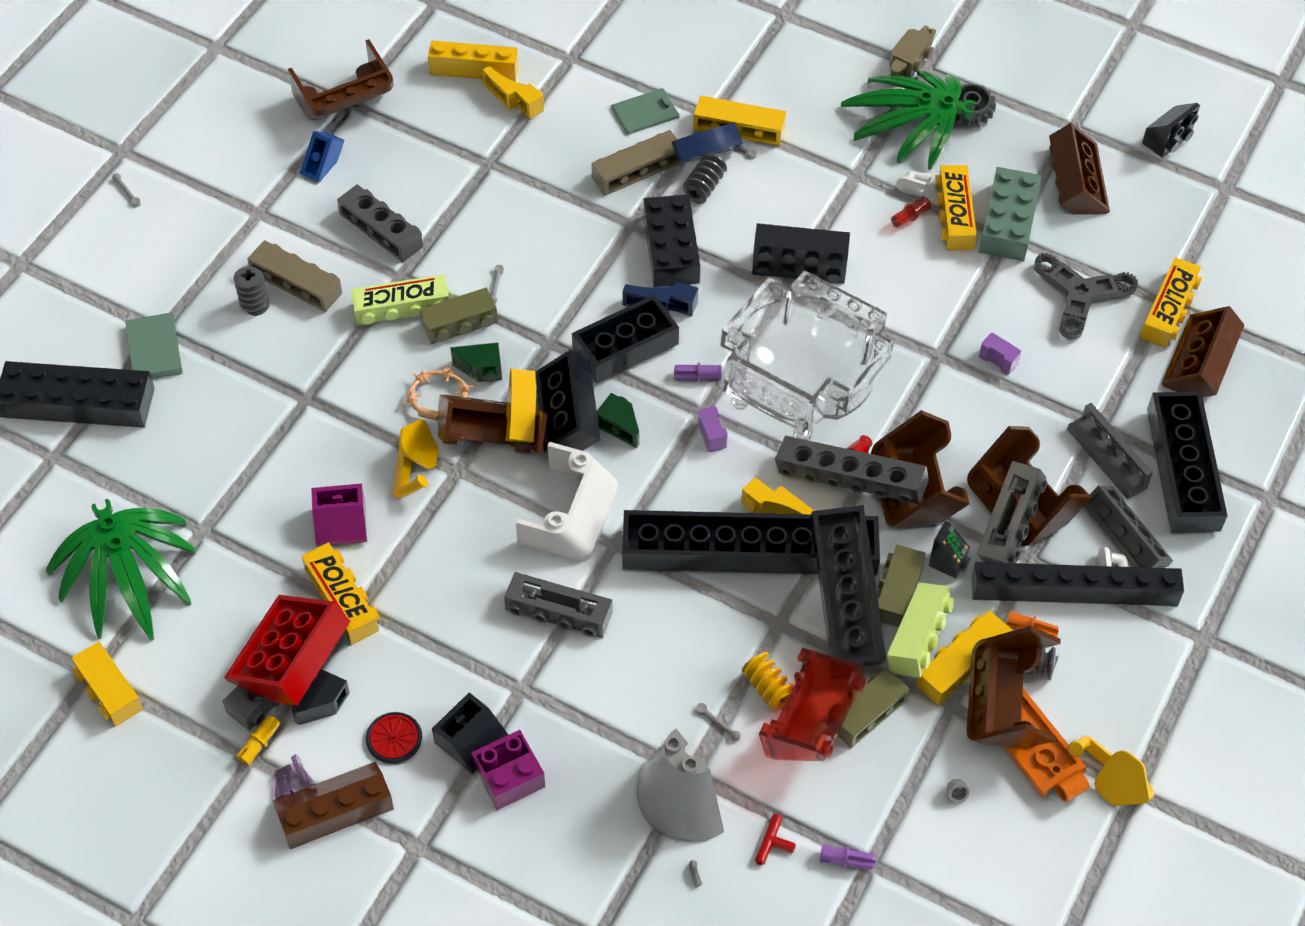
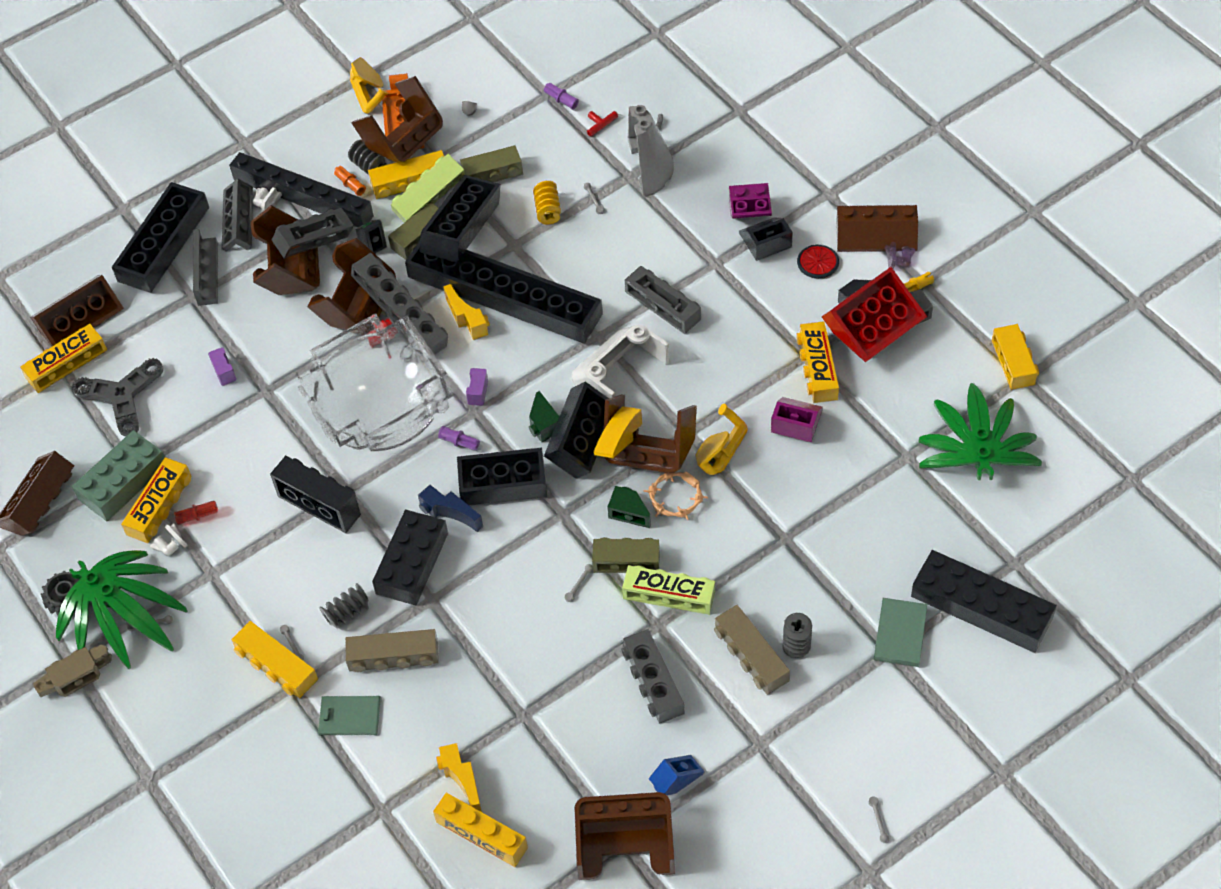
camera: 150 degrees left, 0 degrees up
(707, 142) = (321, 634): dark blue slope -> none
(814, 708) = (538, 158): clear red windscreen -> none

